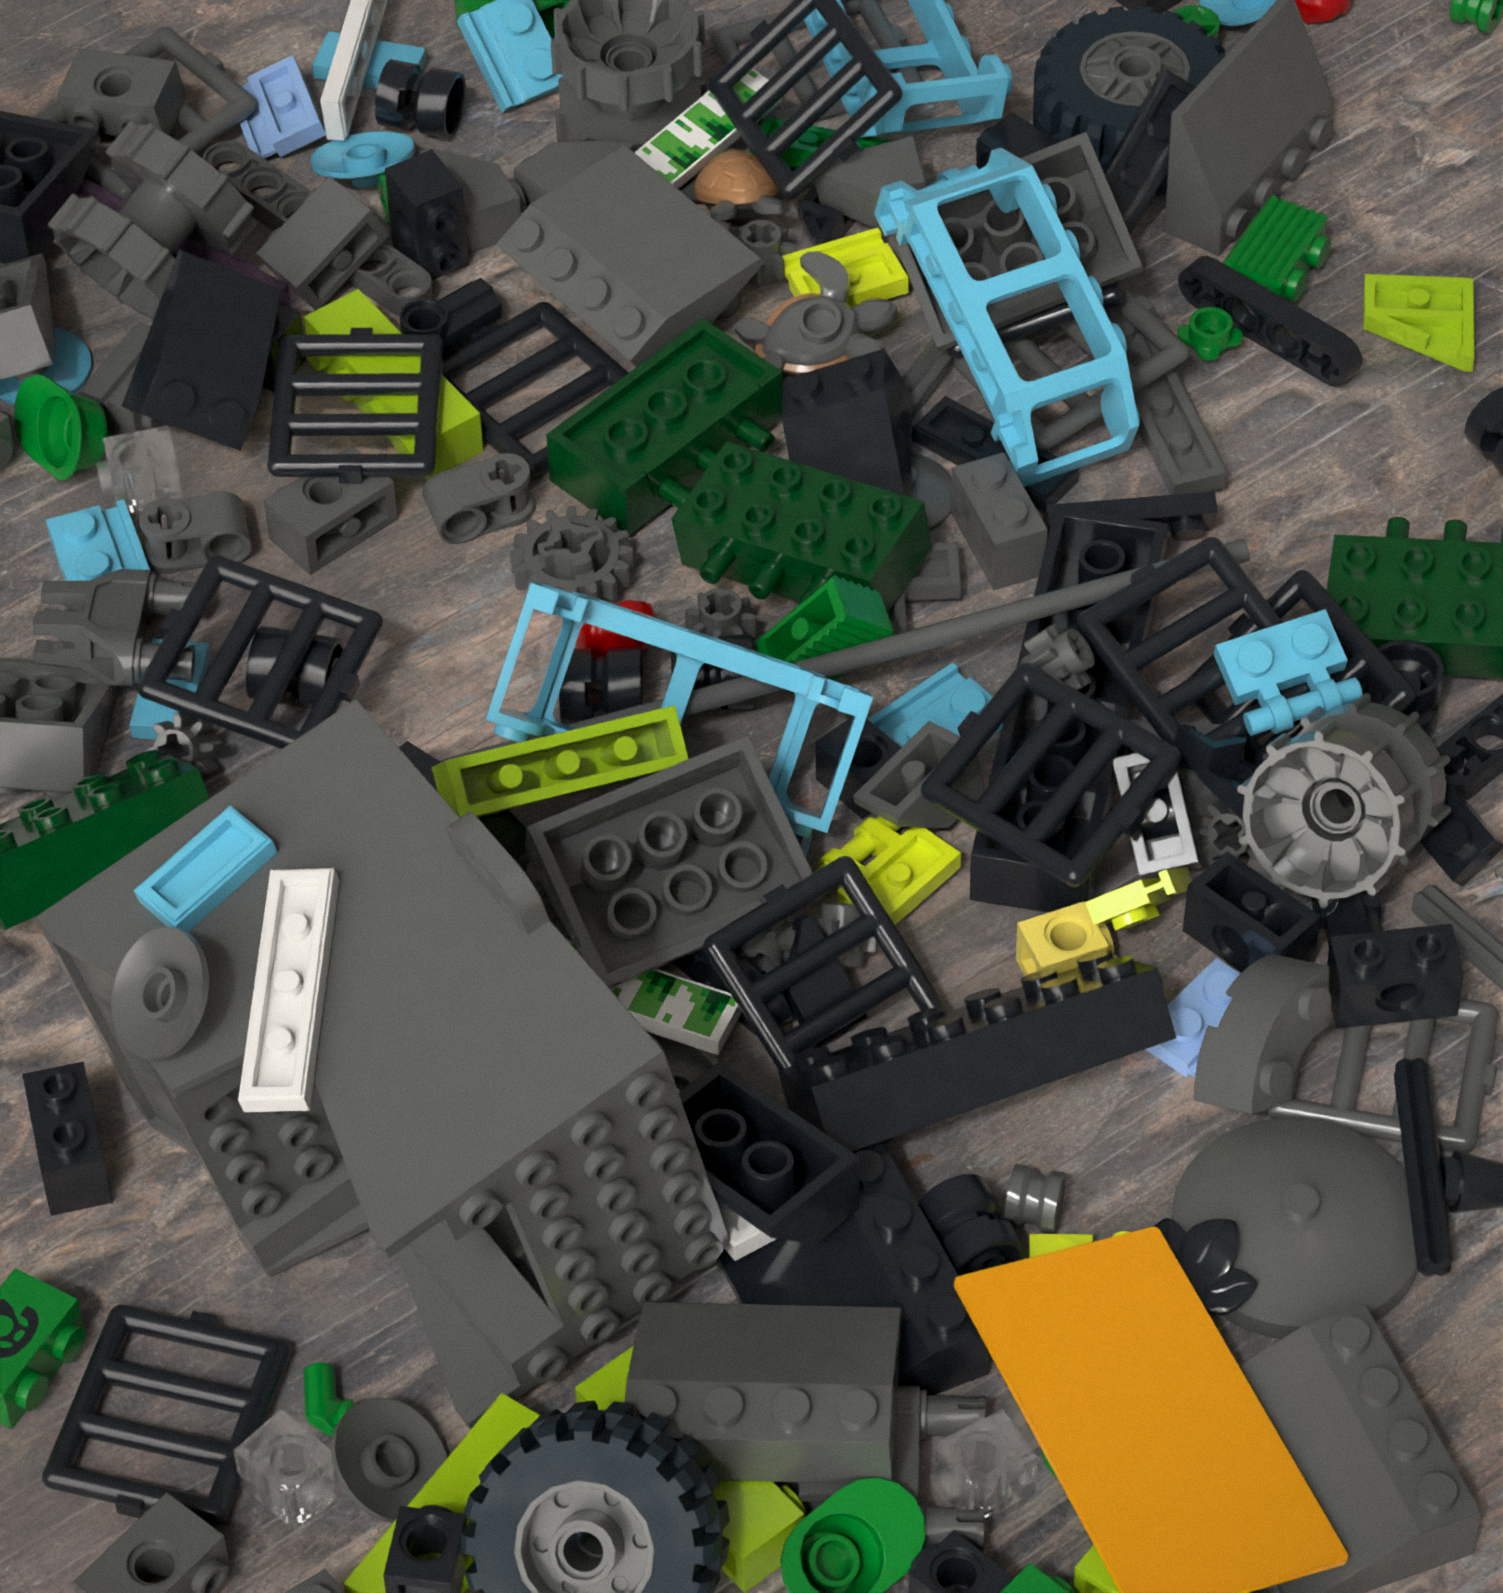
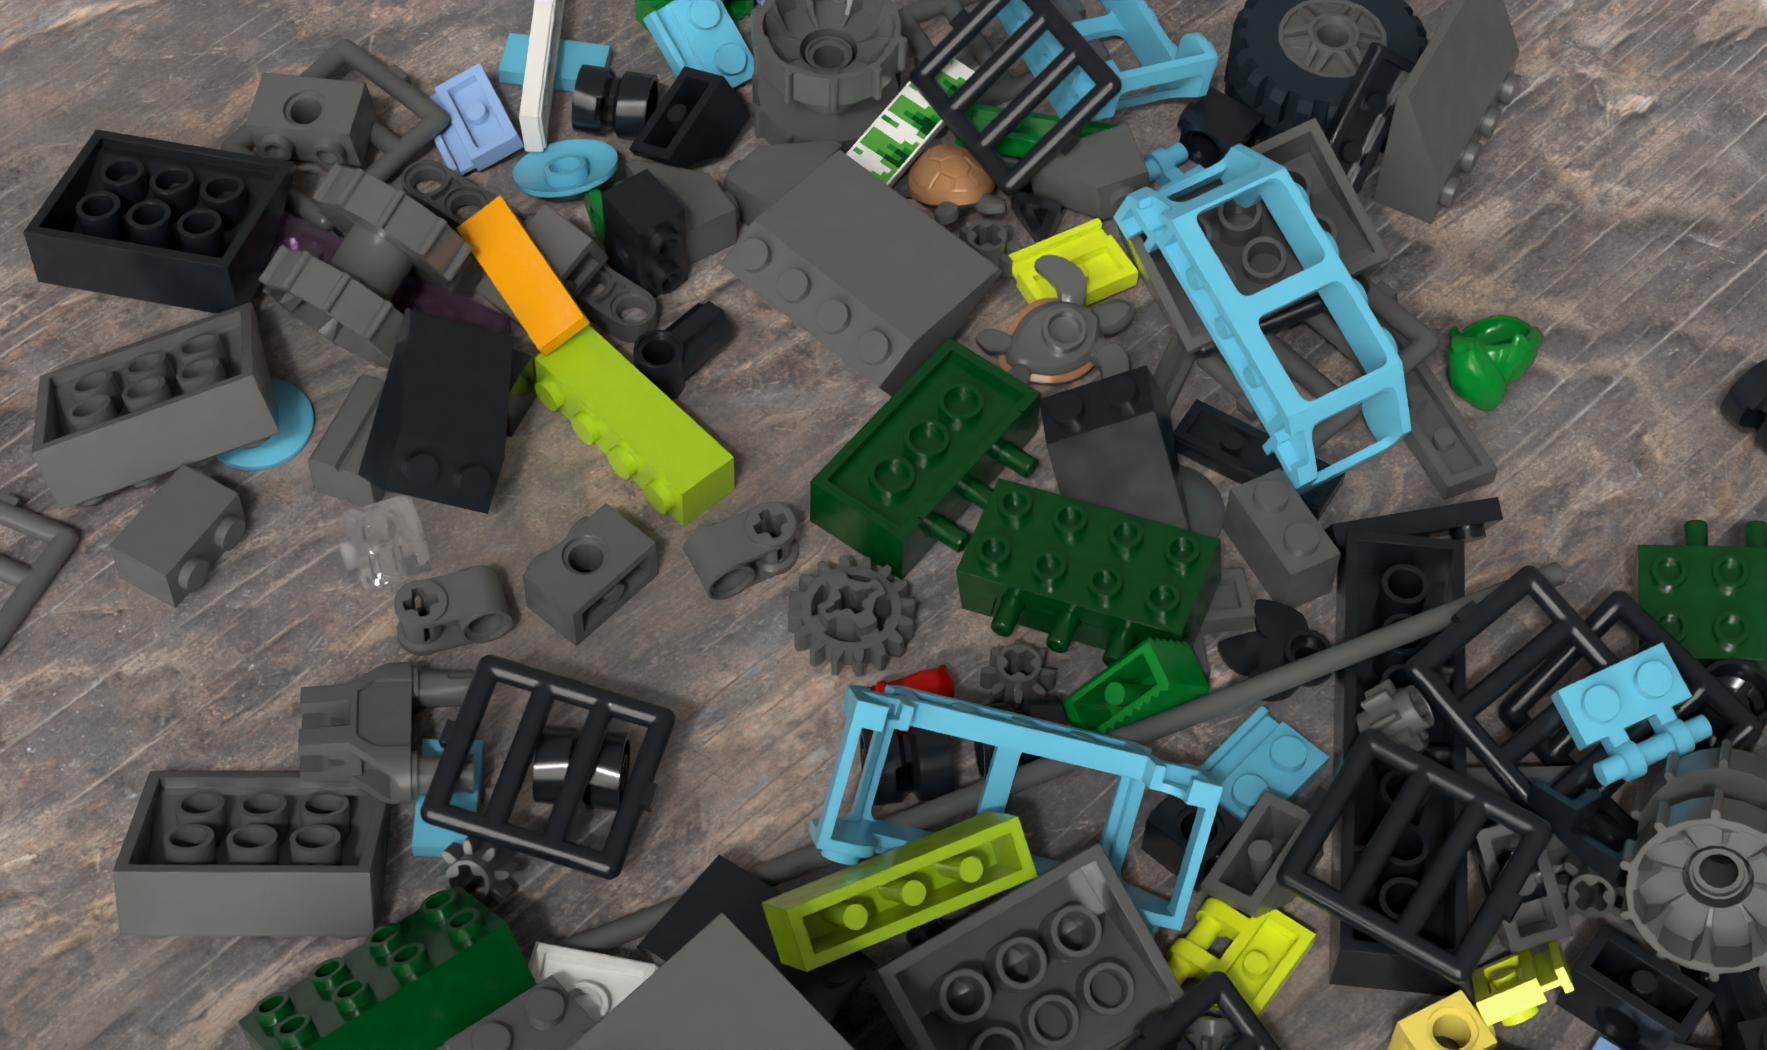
camera: 10 degrees left, 5 degrees up
(59, 427) = (292, 499): green piece -> none
(95, 542) = (348, 632): medium azure plate -> none
(301, 240) = (523, 276): none -> light orange tile
(353, 467) = (610, 530): black bar -> none
(492, 117) = (692, 121): none -> black slope
(570, 342) = (807, 362): black bar -> none
(978, 595) = (1279, 639): none -> black plate
(1210, 333) = (1443, 309): green plate -> none
(1240, 375) = (1490, 357): none -> green hair
(1281, 247) = (1493, 224): green brick -> none
(1320, 347) = (1432, 262): black beam -> none
(1423, 314) = (1650, 278): lime wing -> none

